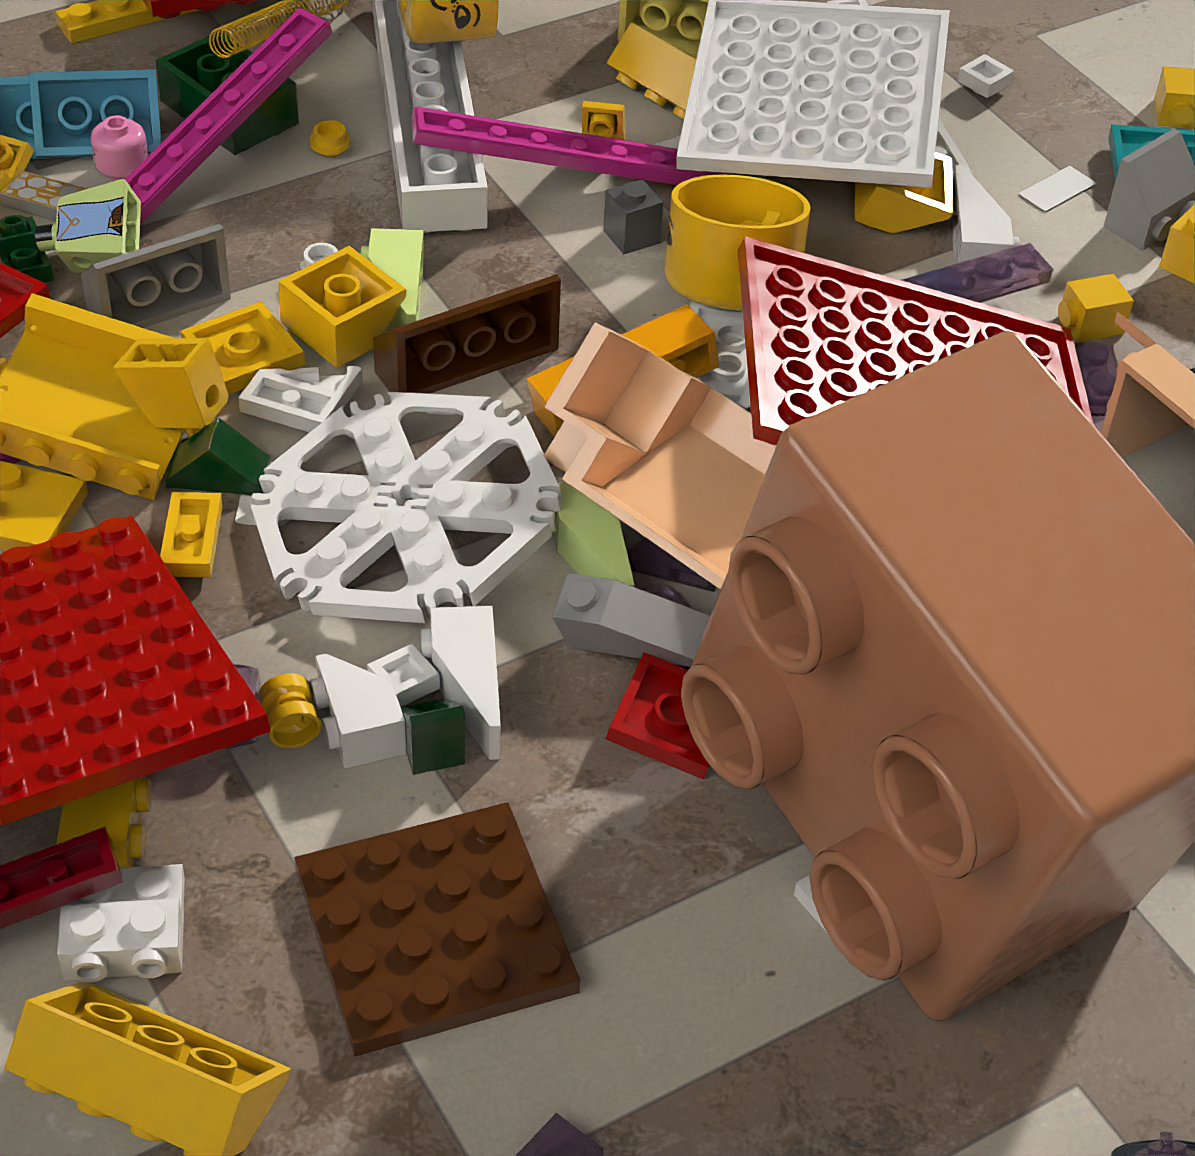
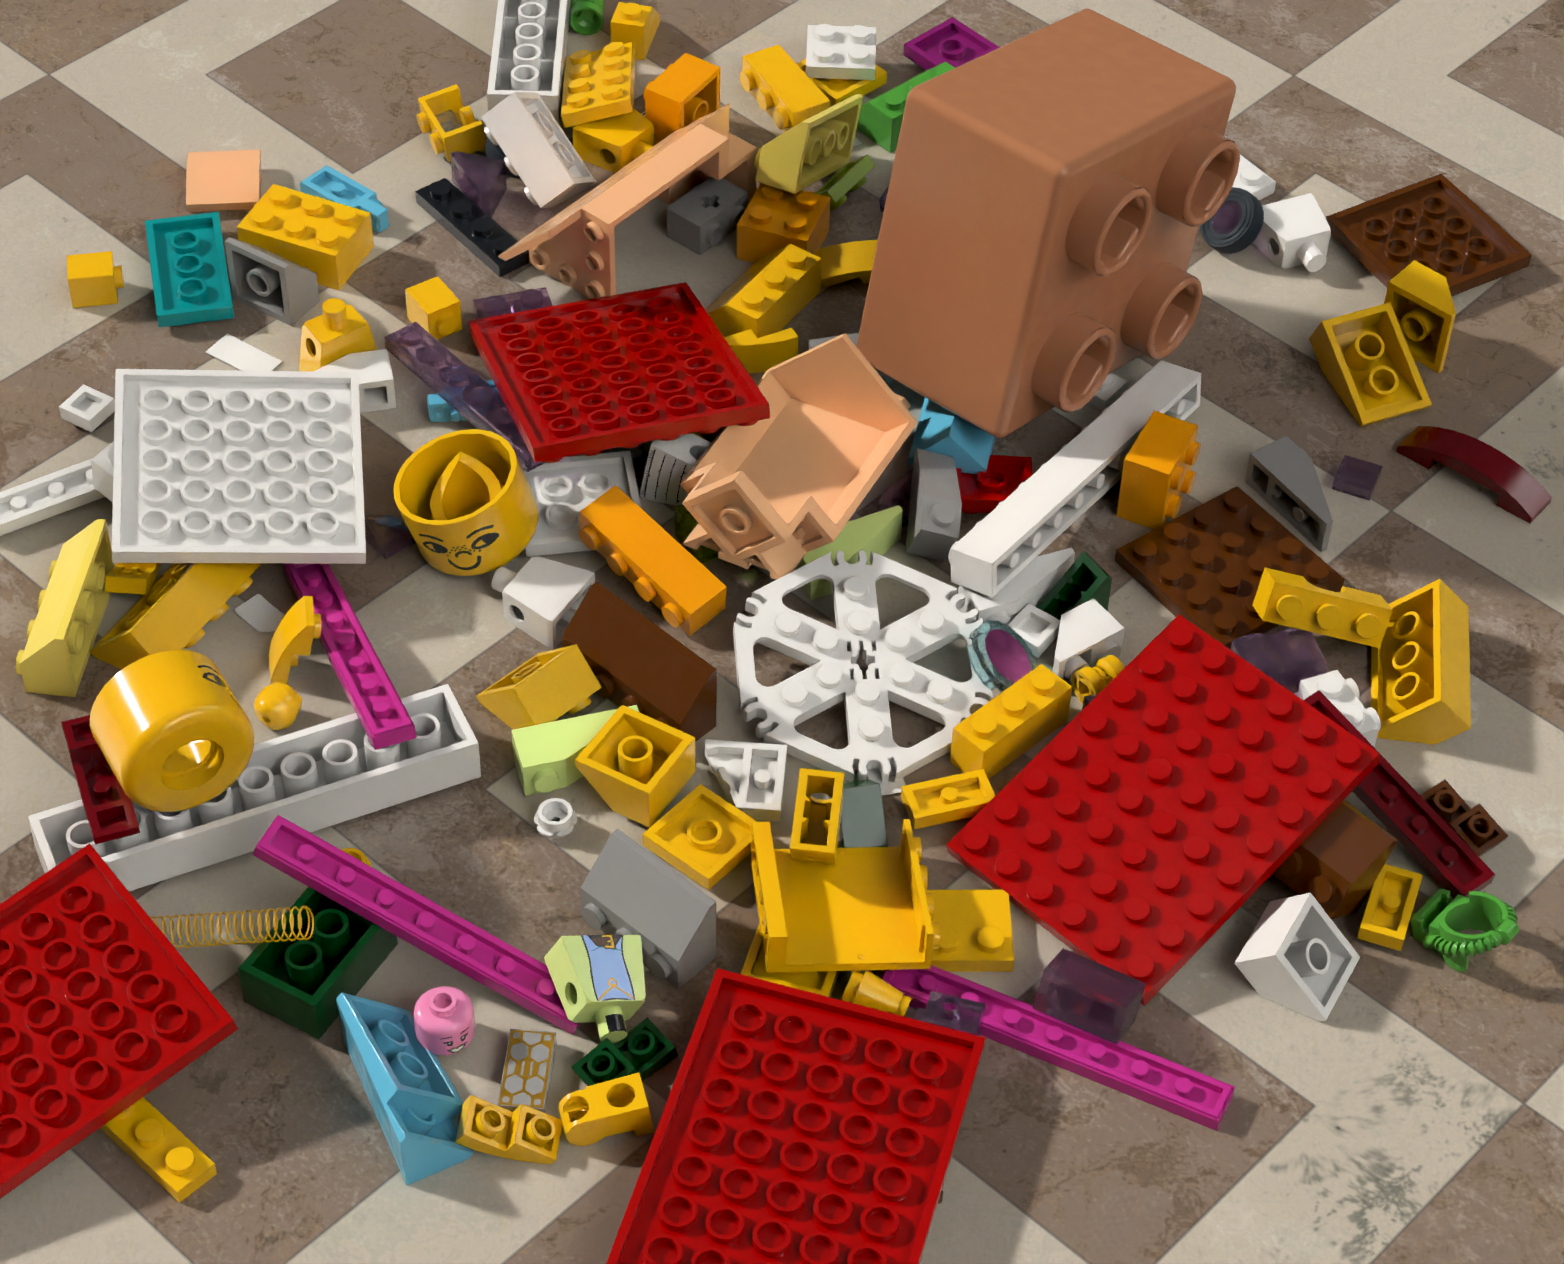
camera: 105 degrees left, 0 degrees up
(232, 901) = (1284, 656): none -> clear purple brick
(251, 999) = (1342, 615): none -> yellow arch
(261, 604) = (1011, 722): none -> yellow brick
(355, 616) = (999, 655): none -> tile
(473, 265) = (542, 689): none -> yellow slope
(542, 115) = (277, 705): none -> yellow piece
(547, 1043) = (1290, 484): none -> light grey slope
(608, 861) = (1158, 471): none -> light orange brick
(611, 297) = (542, 597): none -> white torso
(633, 216) = (415, 605): dark grey brick -> none
(636, 783) = (1068, 482): none -> white brick
(1039, 214) = (333, 335): none -> yellow torso

